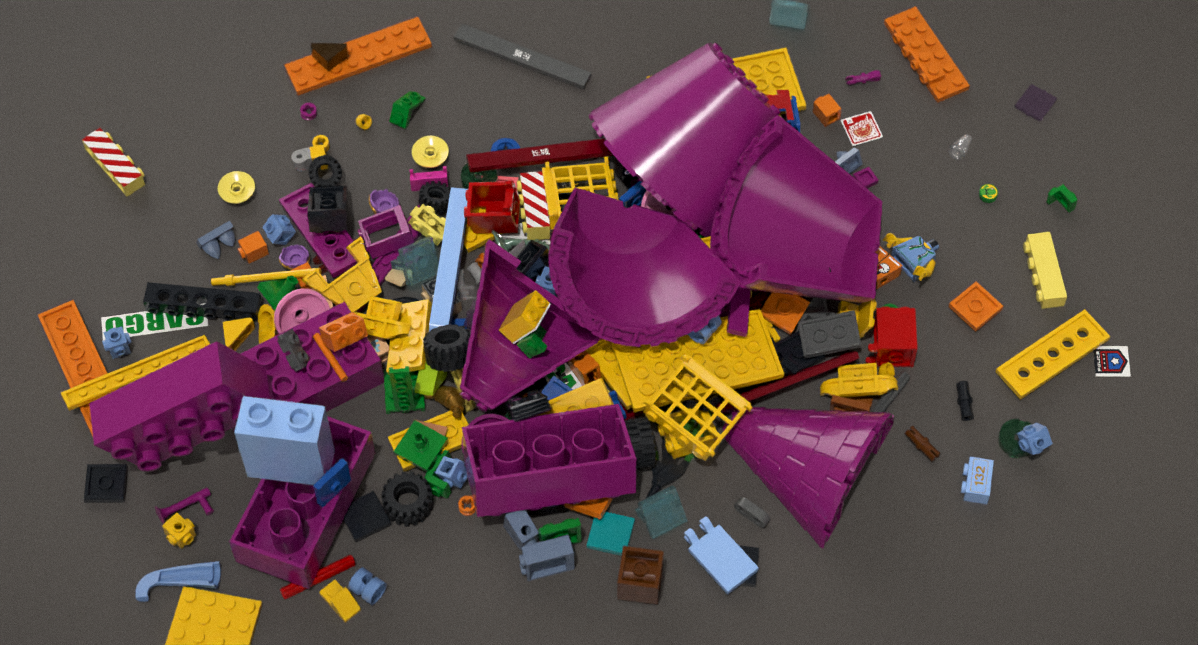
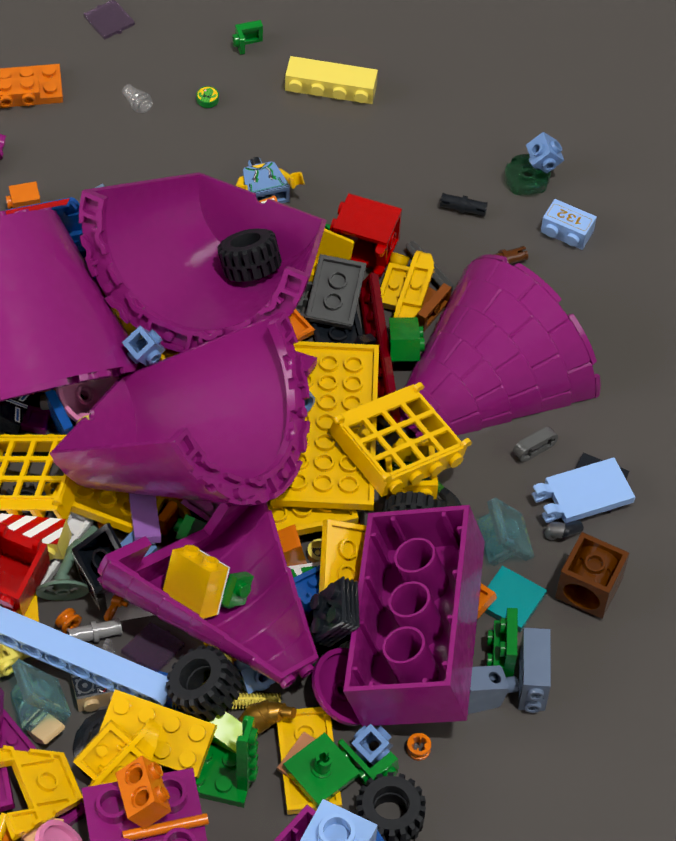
camera: 75 degrees left, 5 degrees down
(681, 551) = (561, 530): none -> arm
(699, 217) = (144, 346): none -> medium blue brick
(805, 393) = (405, 339): none -> green brick
(828, 263) = (249, 255): none -> black tyre
(861, 128) = (62, 180): sticker -> none
(975, 306) = (349, 154): orange plate -> none
(1052, 365) = (429, 121): yellow plate -> none
(1111, 361) = (460, 70): sticker -> none

